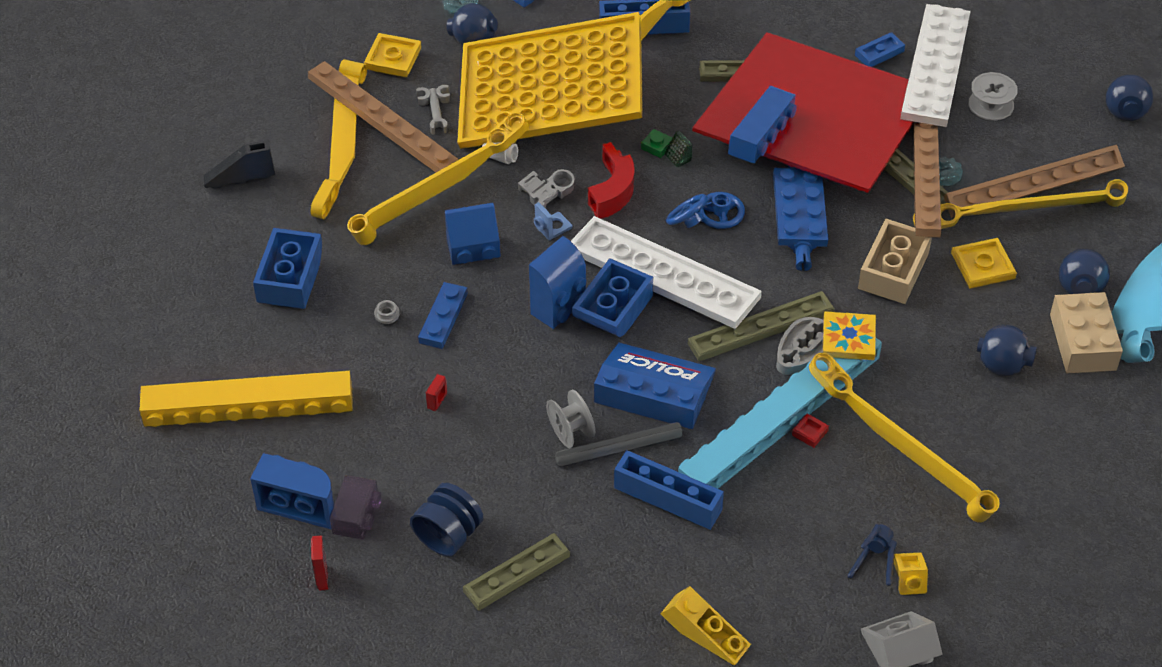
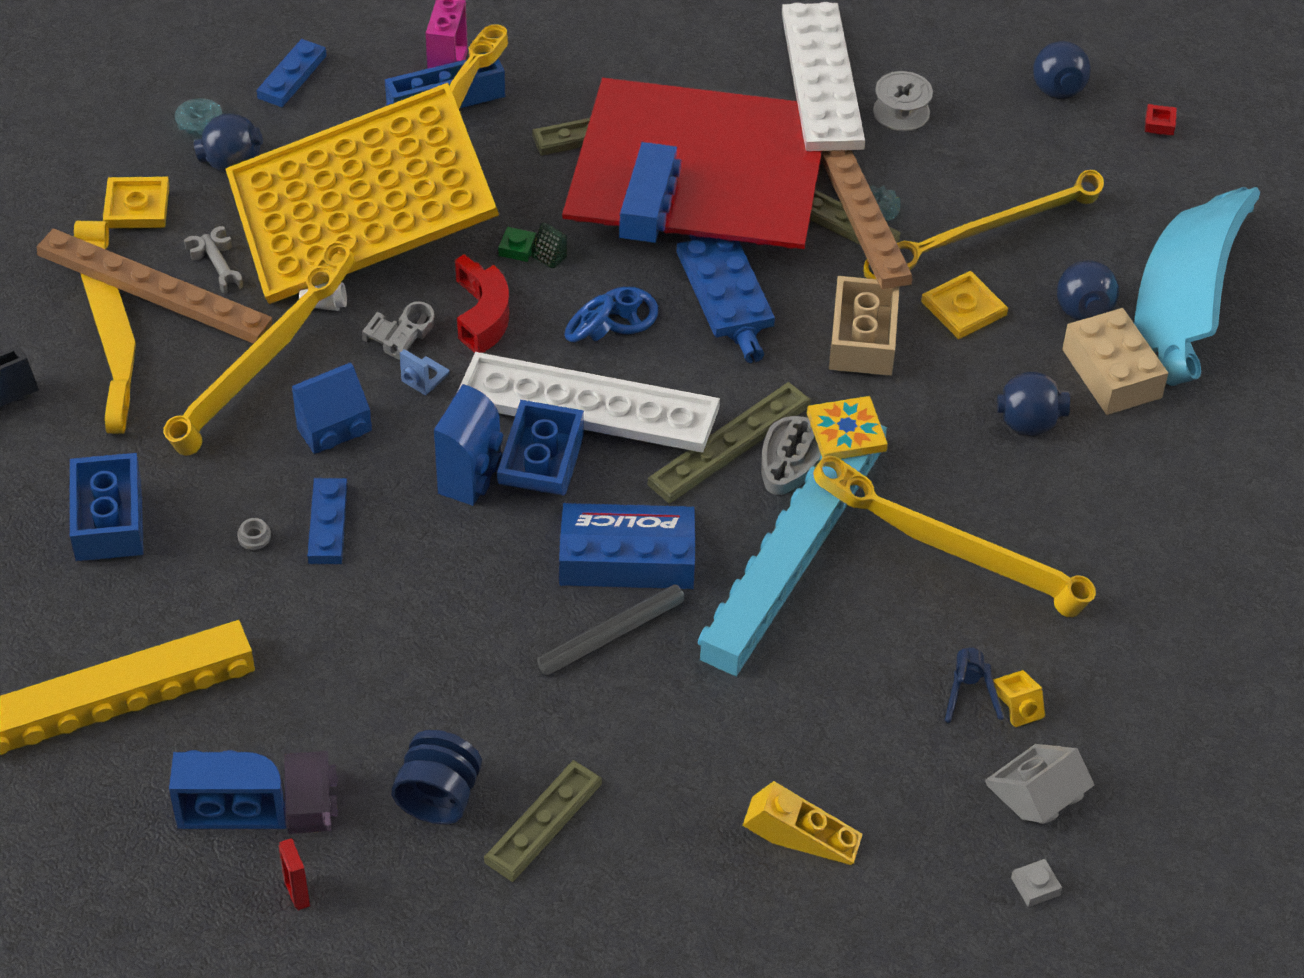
camera: 20 degrees left, 0 degrees up
(436, 392) = (359, 620): red tile -> none
(570, 418) = (540, 615): light grey piece -> none
(668, 489) = (697, 670): blue brick -> none
(810, 430) = (836, 555): red tile -> none
(880, 50) = (748, 72): blue plate -> none
(1039, 178) = (991, 190): medium nougat plate -> none

